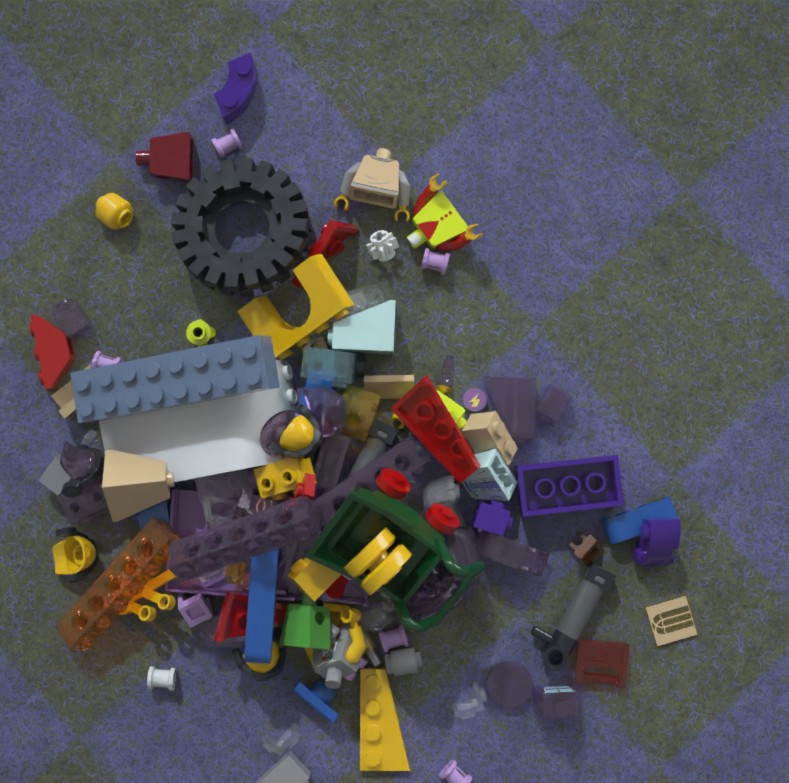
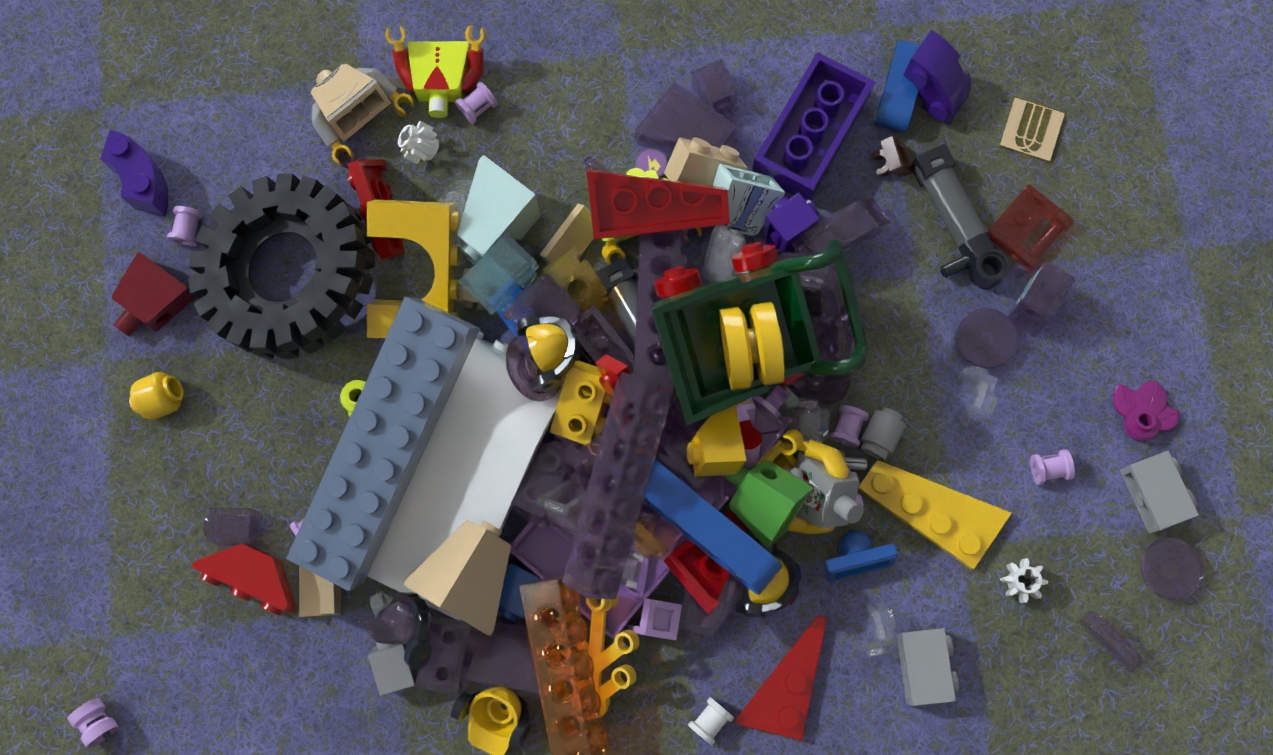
camera: 50 degrees left, 10 degrees down
(110, 537) = (505, 658): none -> clear purple slope
(207, 710) = (785, 696): none -> red wing

